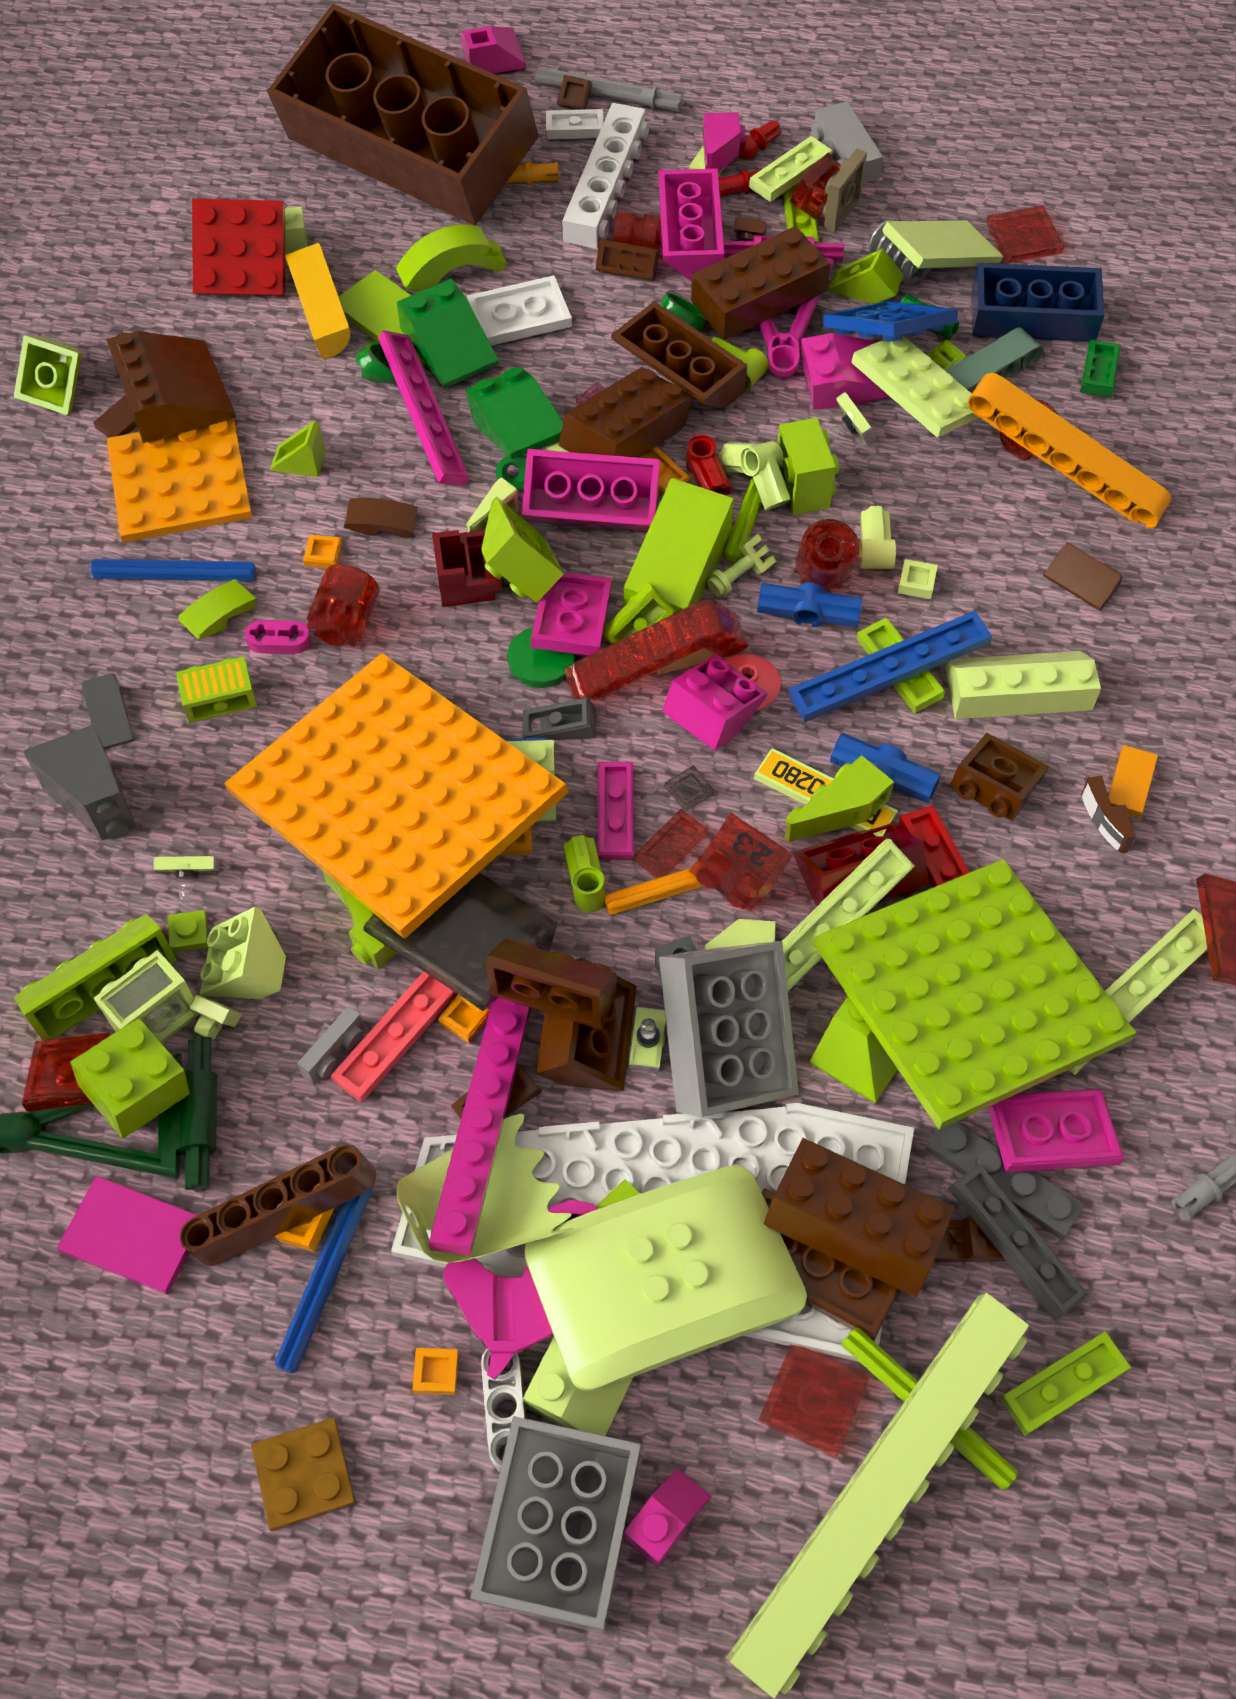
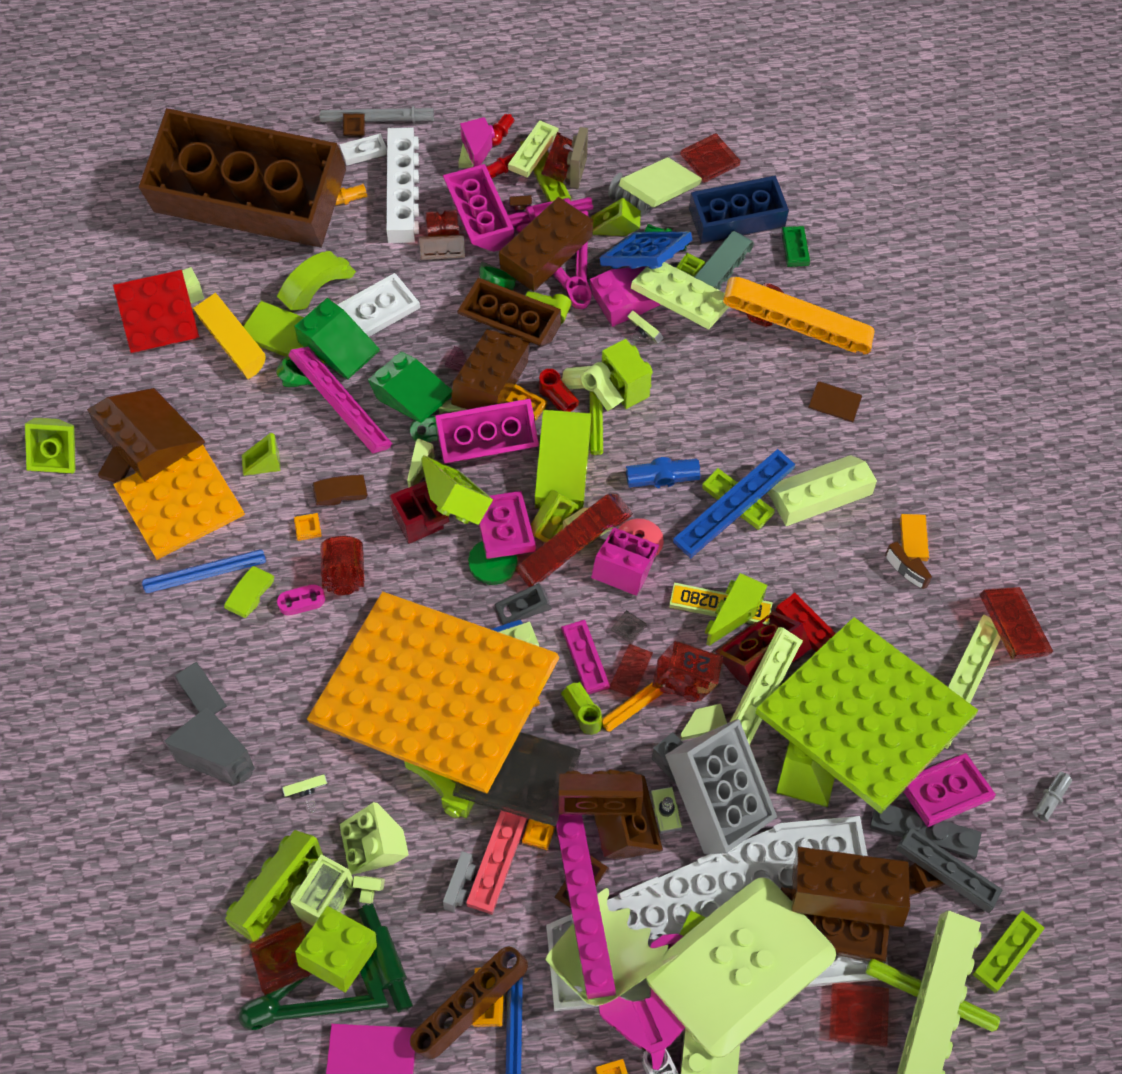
camera: 20 degrees left, 0 degrees up
(188, 931) = (325, 831): lime plate -> none
(216, 689) = (274, 651): lime brick -> none
(492, 49) = (280, 105): dark pink slope -> none
(720, 583) = (597, 473): yellowish green hinge -> none
(827, 554) = (665, 435): clear red gear -> none
(843, 133) = (563, 114): light grey brick -> none
(876, 545) = (690, 414): yellowish green piece -> none
(907, 775) = (775, 577): blue piece -> none
(917, 579) = (728, 433): yellowish green plate -> none
(998, 777) = (830, 560): reddish brown plate -> none

